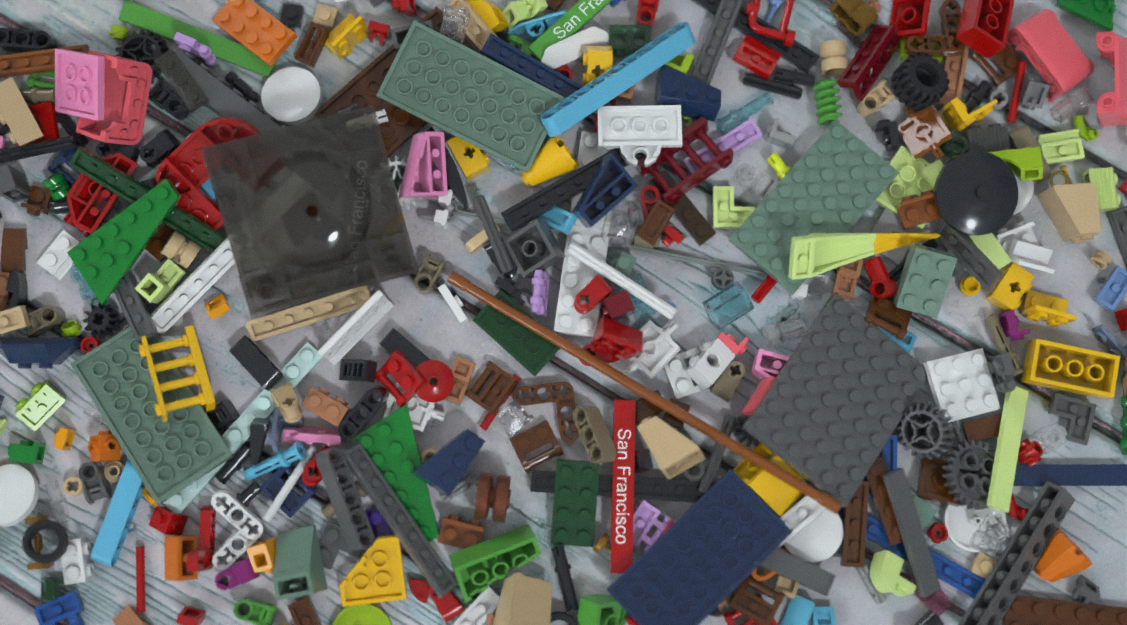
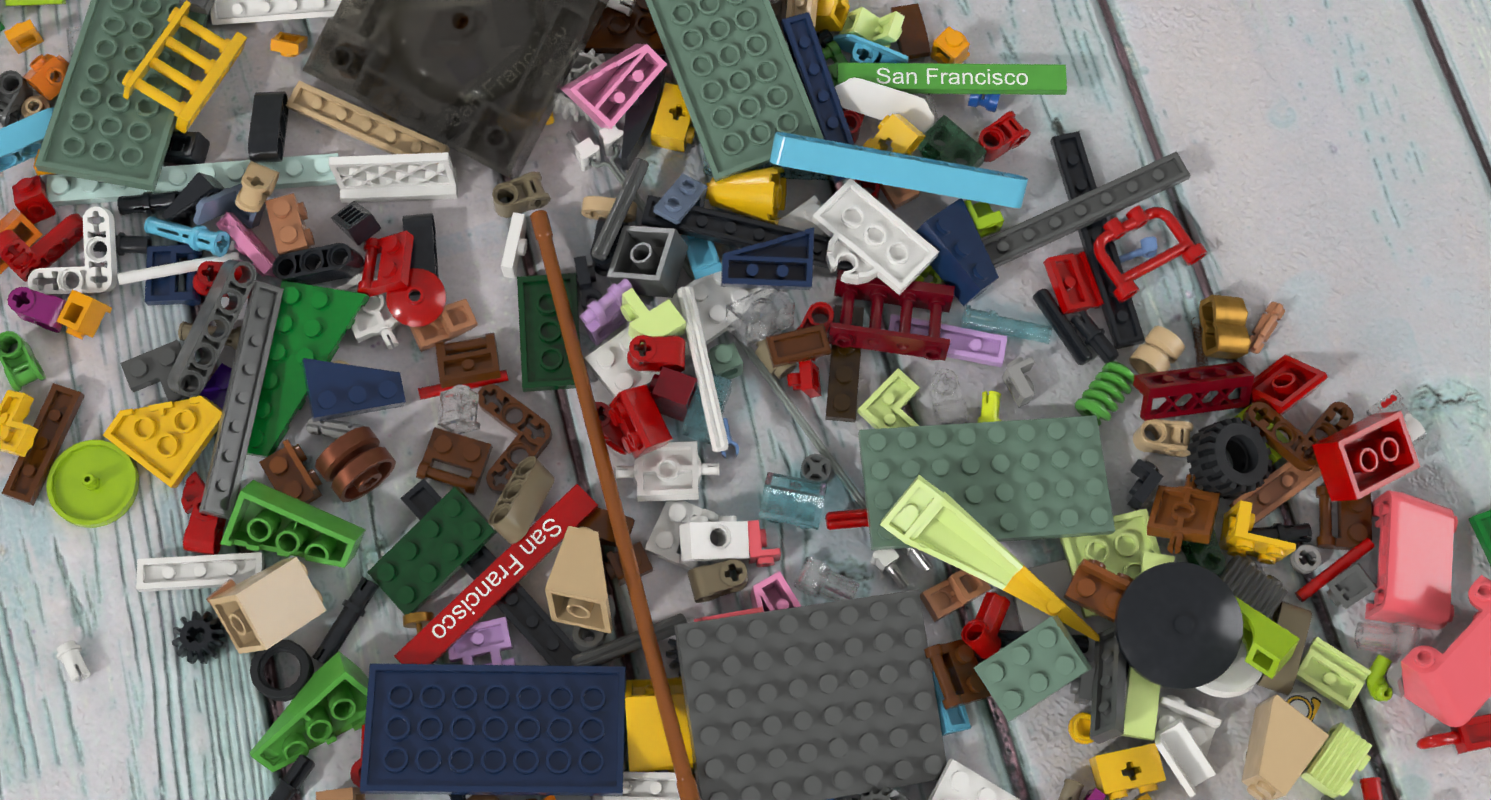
camera: 45 degrees right, 10 degrees down
(298, 564) = (103, 352): sand green slope -> none
(520, 199) = (681, 198): none -> sand blue bracket
(578, 279) = (658, 322): none -> yellowish green brick
(643, 461) = (541, 574): black slope -> none

